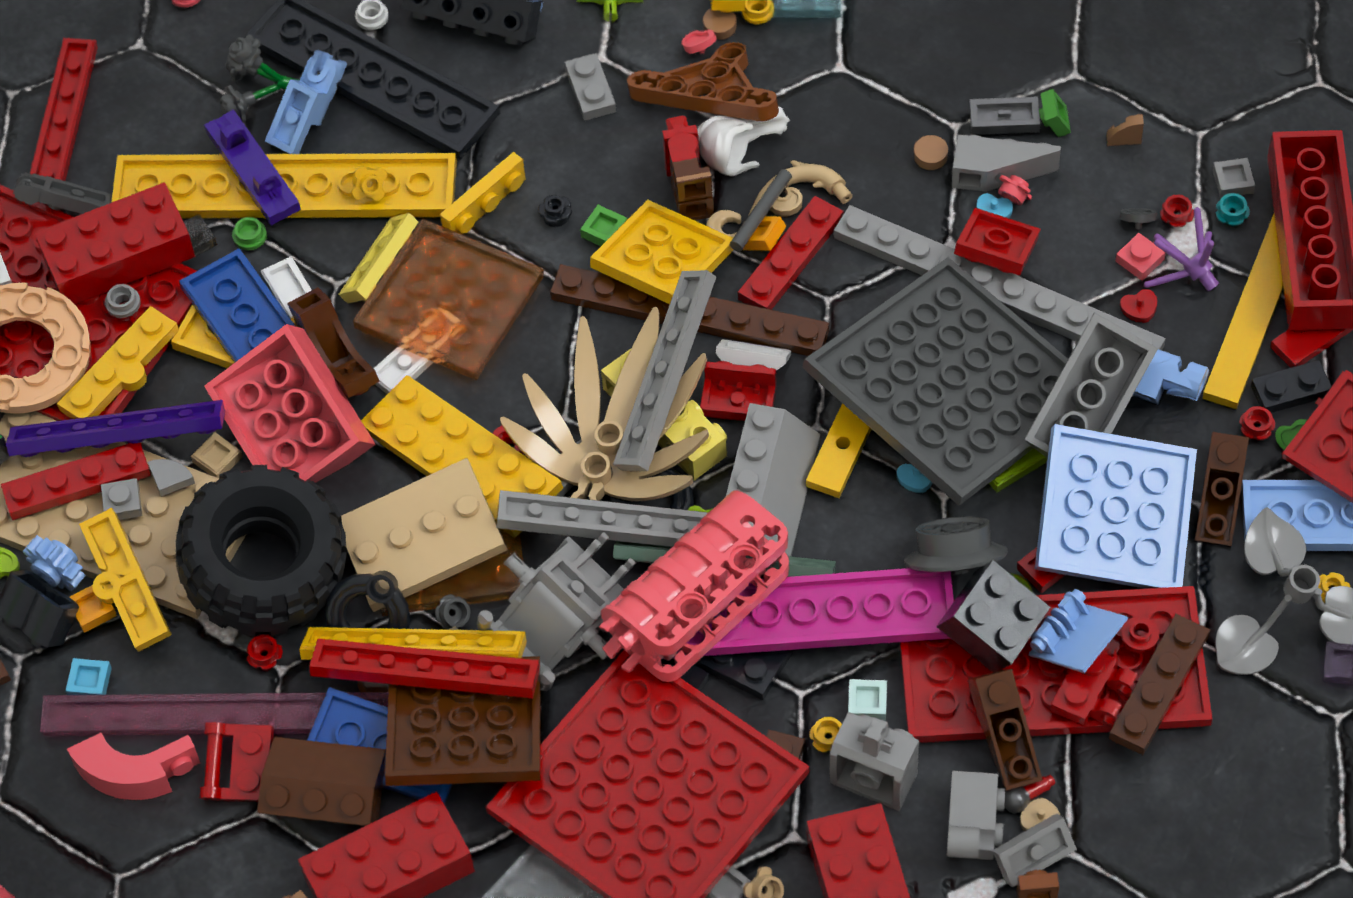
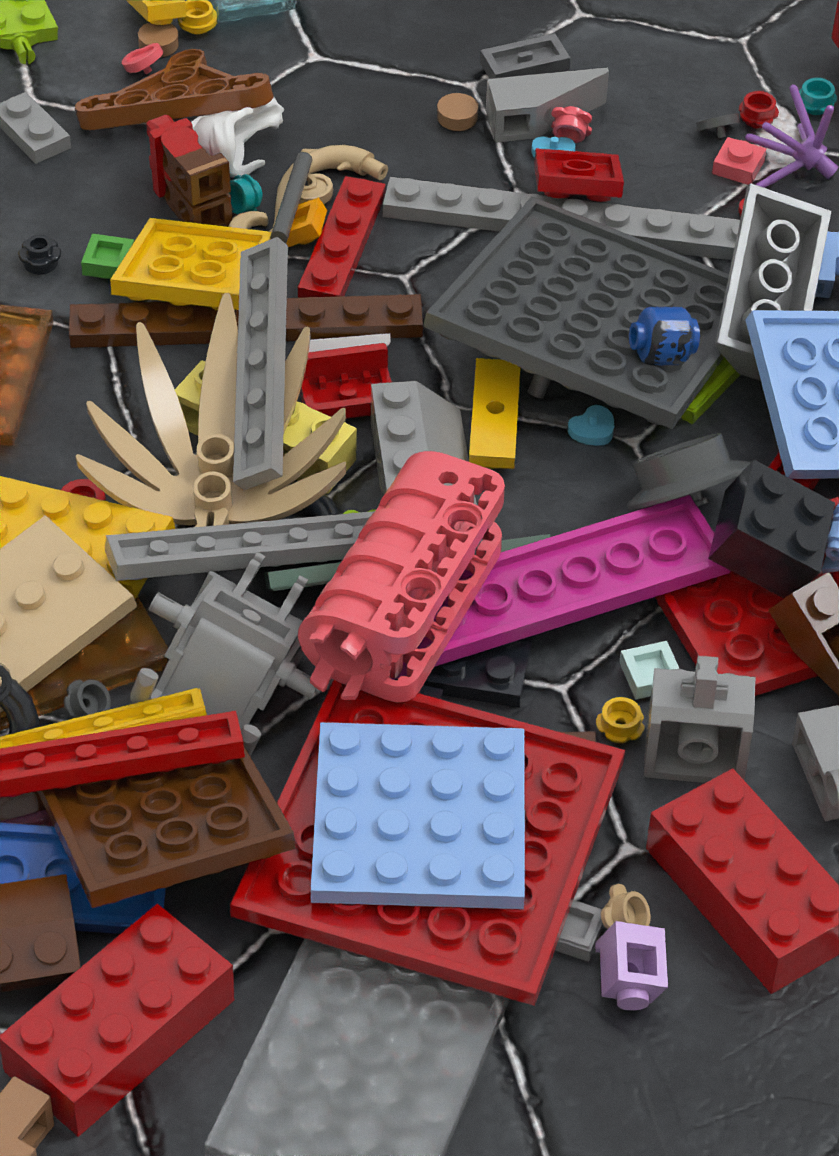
camera: 25 degrees left, 10 degrees down
(640, 777) = (419, 816): none -> light blue plate
(729, 193) = (245, 194): none -> teal plate
(982, 425) = (664, 336): none -> blue head
(1054, 113) = (579, 45): bright green plate -> none
(1126, 133) = (668, 49): medium nougat tile -> none
(1233, 177) = (800, 66): light grey tile -> none

